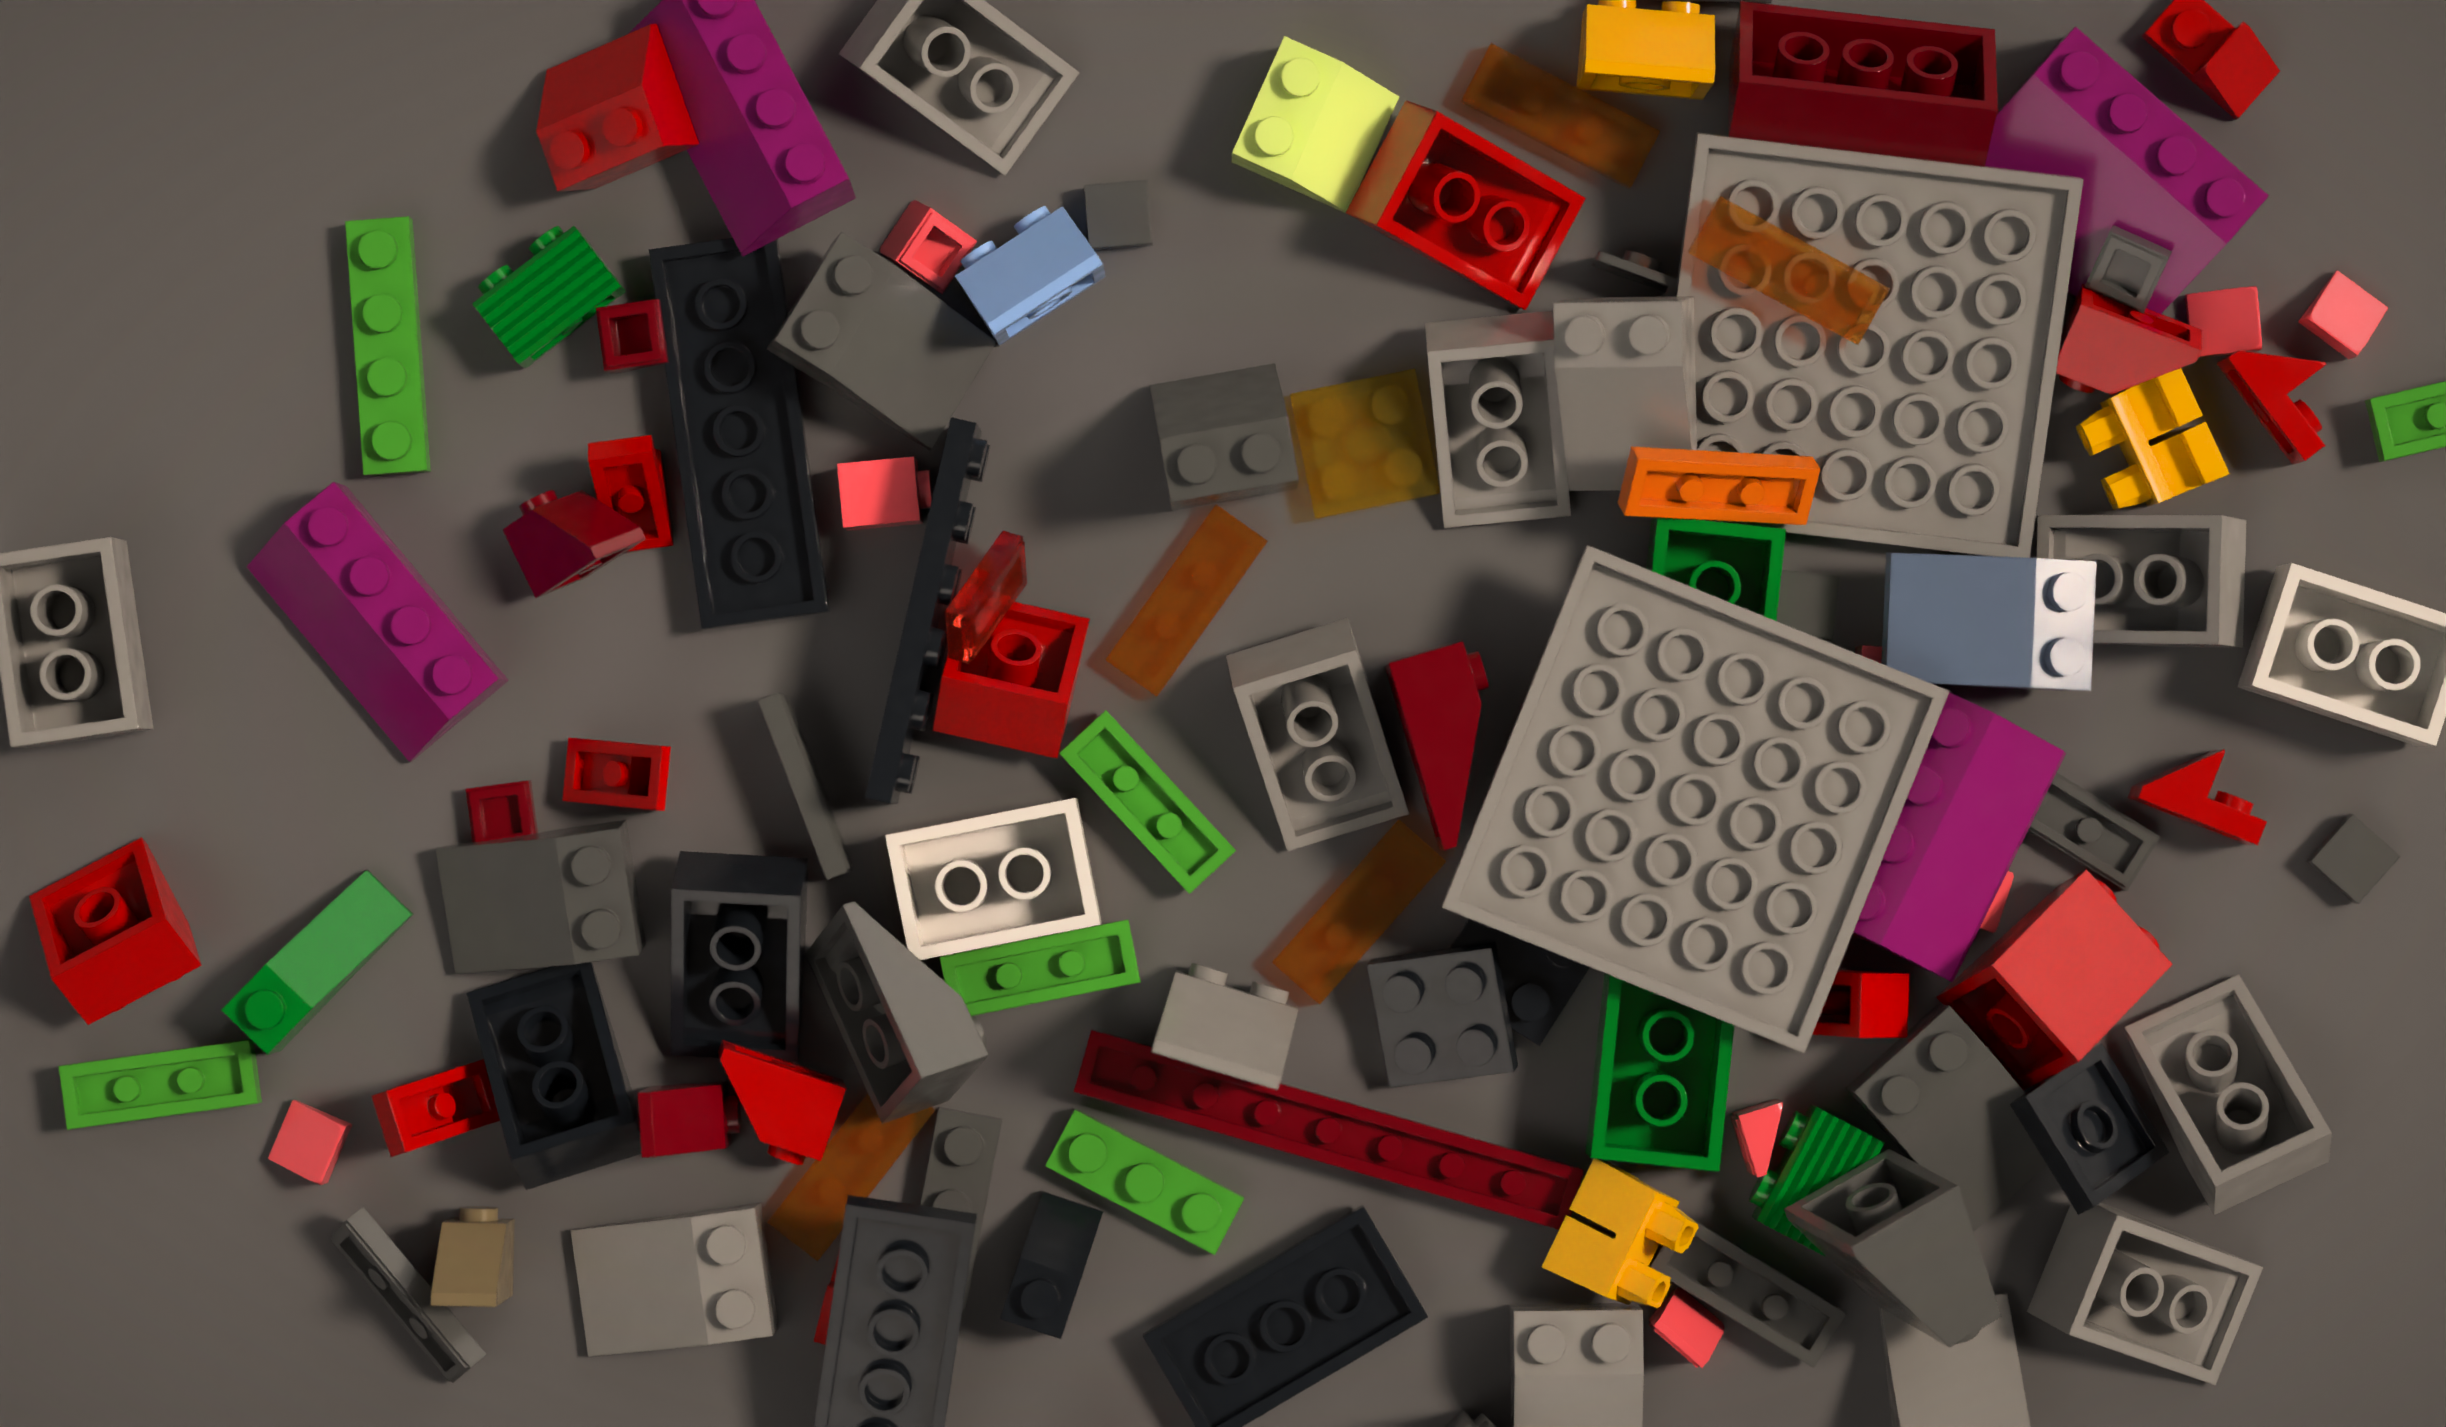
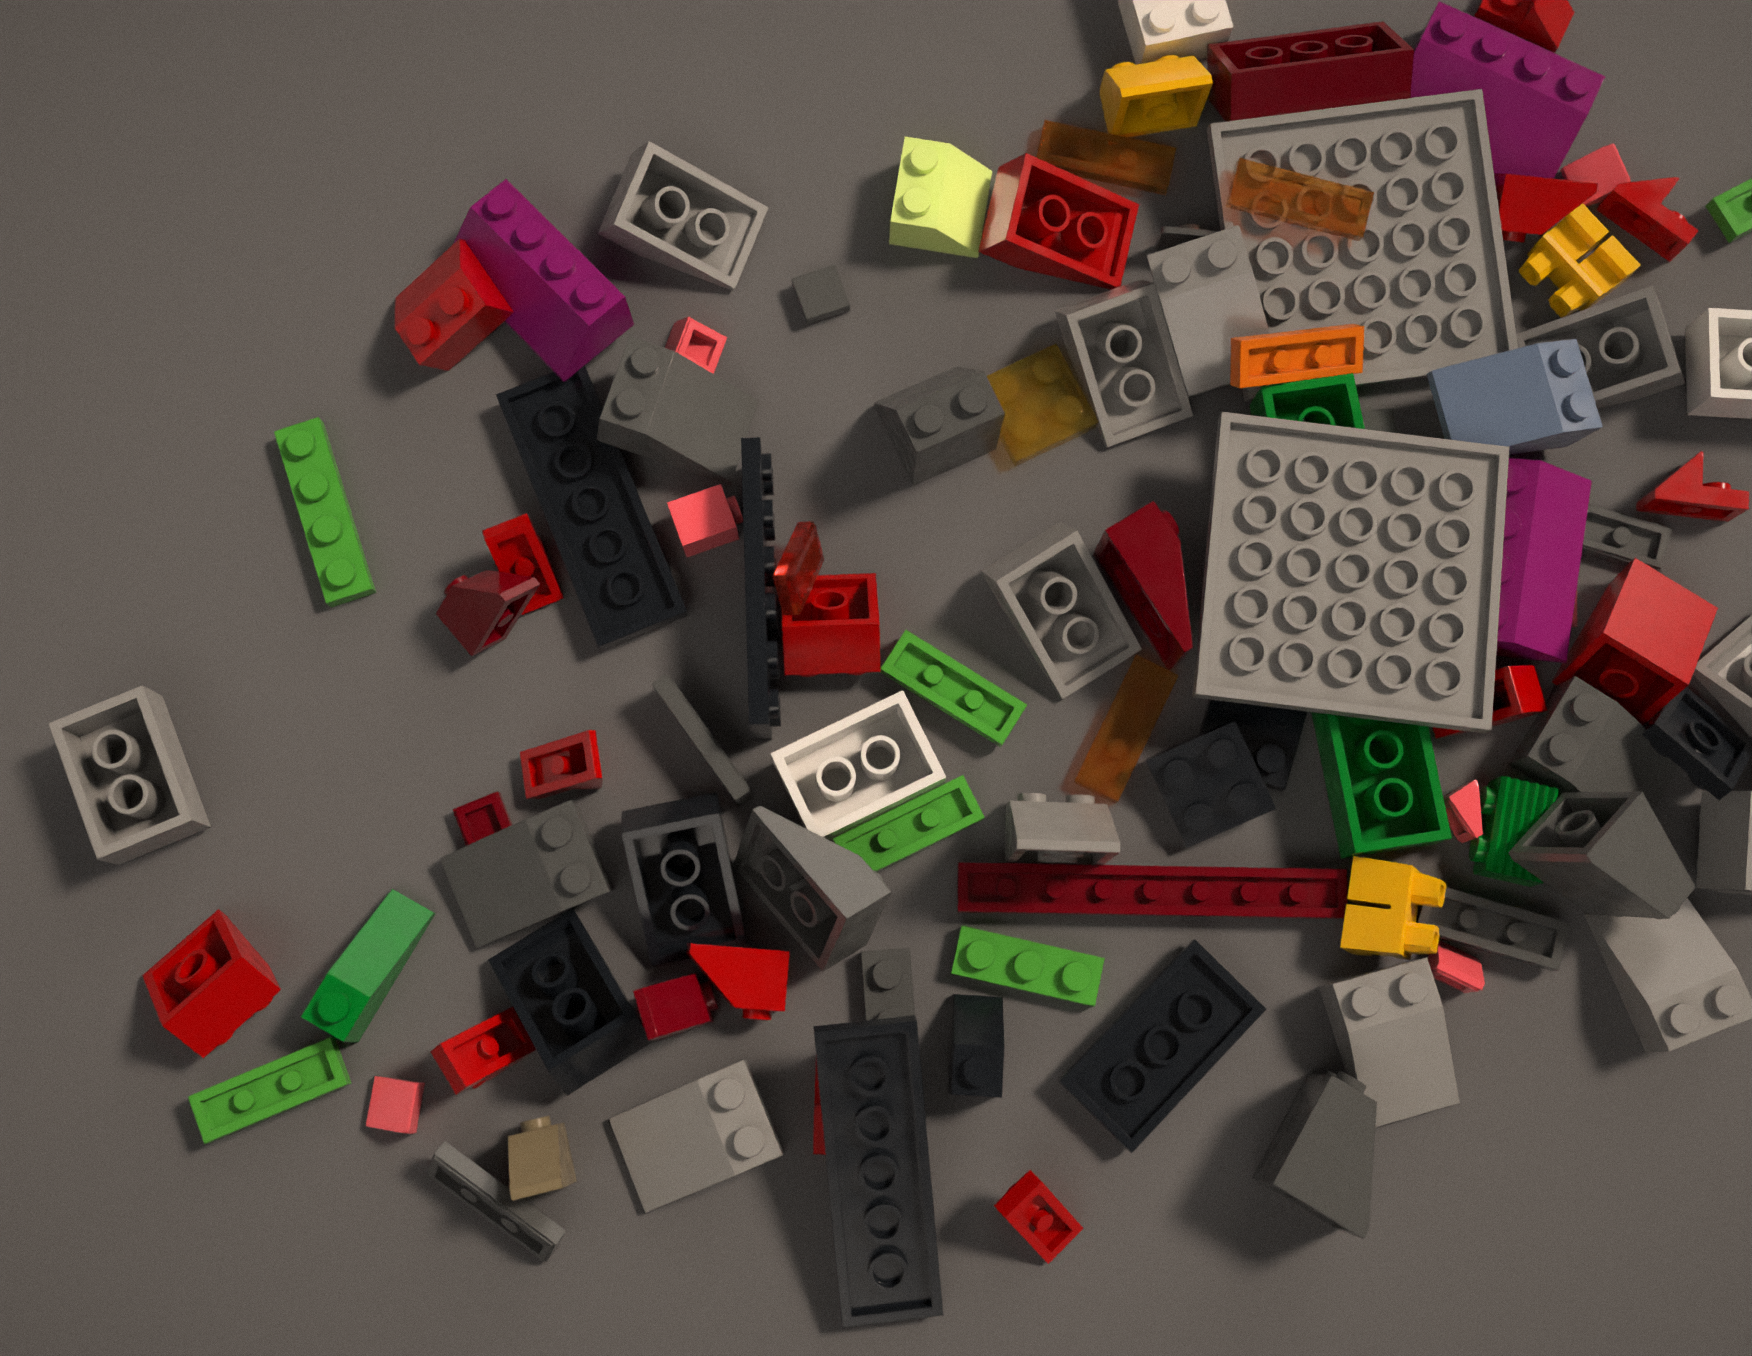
camera: 15 degrees left, 10 degrees down
(375, 620) = (357, 704): magenta slope -> none
(547, 294) = (431, 444): green brick -> none
(632, 336) = (498, 456): dark red slope -> none
(850, 1166) = (808, 1004): clear orange tile -> none
(1029, 272) = (772, 343): light blue slope -> none
(1186, 600) = (940, 543): clear orange tile -> none
(2128, 269) = (1524, 151): dark grey tile -> none
(2343, 315) = (1671, 156): coral slope -> none

